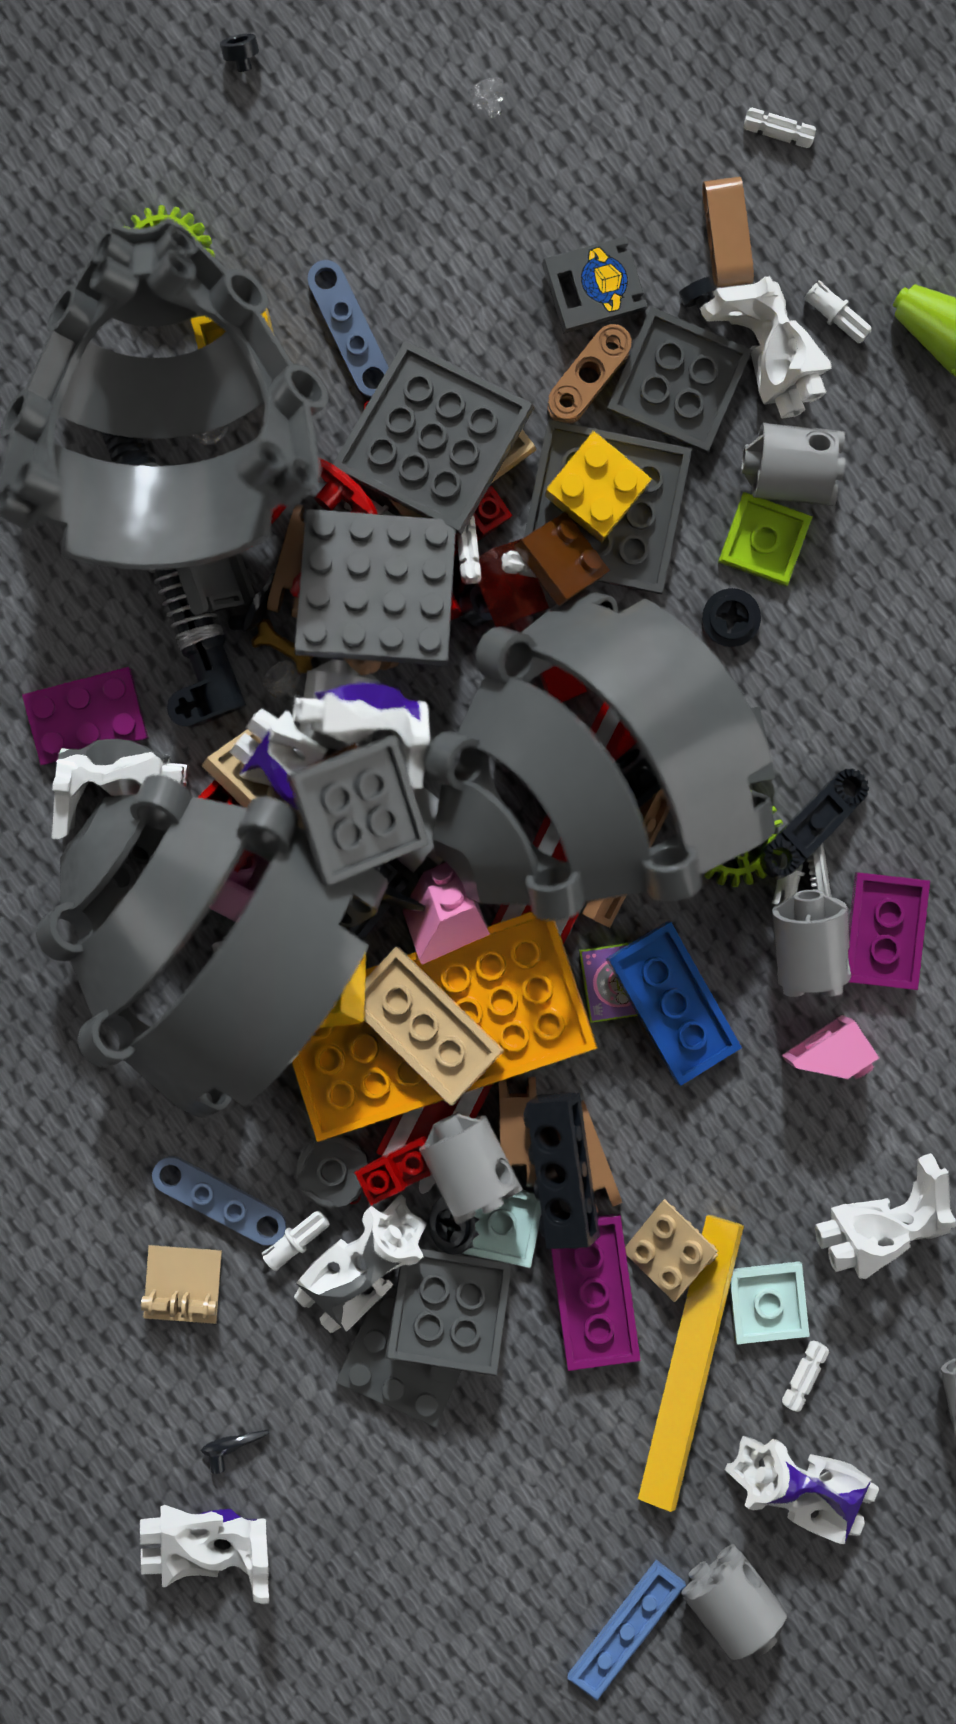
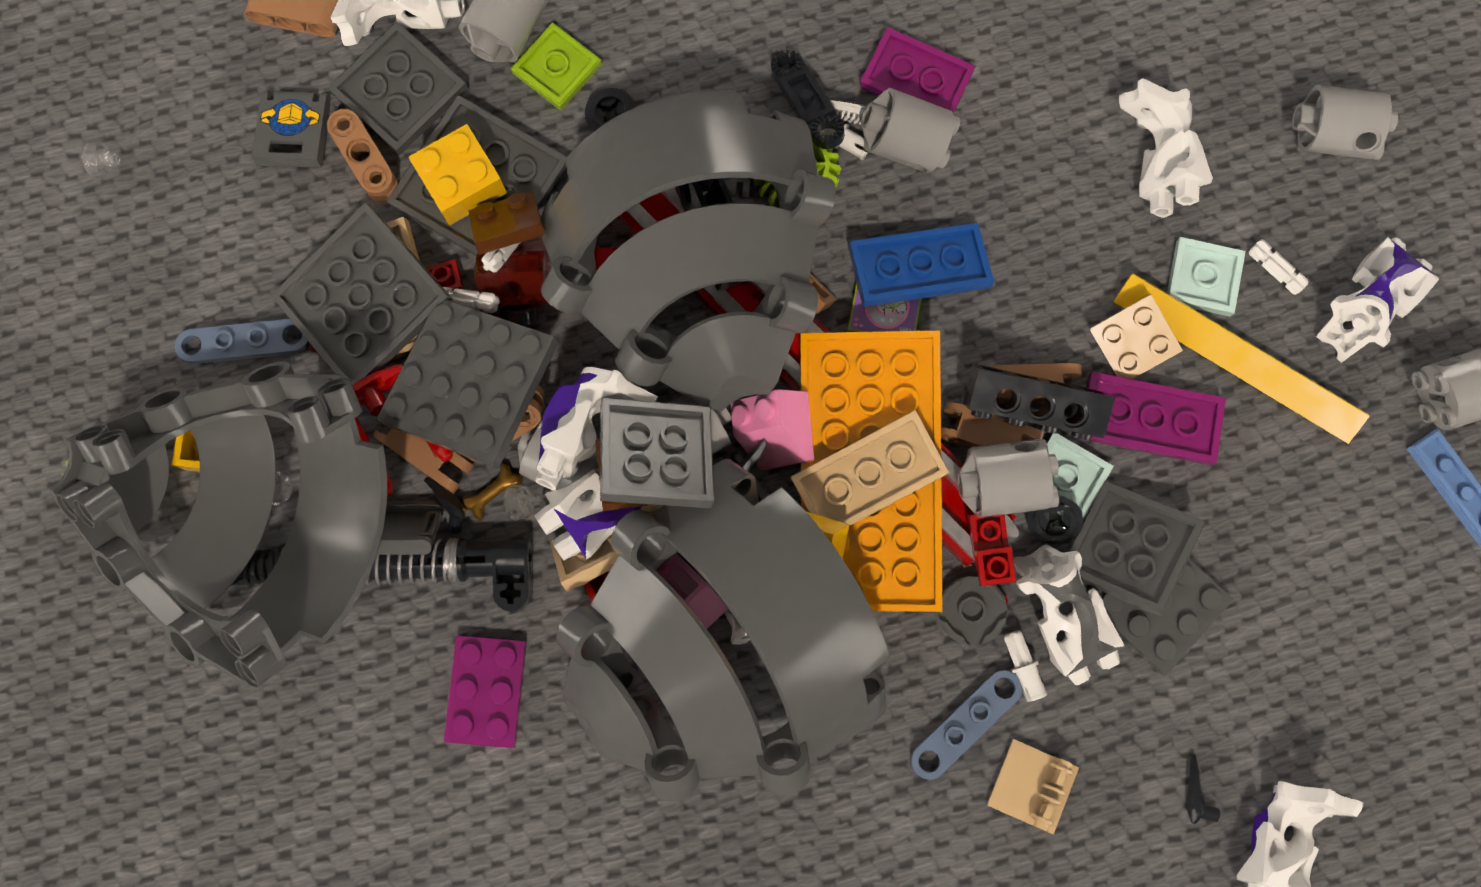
camera: 70 degrees left, 10 degrees down
(112, 764) = (537, 674): white hips -> none
(698, 292) = (333, 48): black tile -> none
(835, 1051) = (1004, 141): bright pink slope -> none

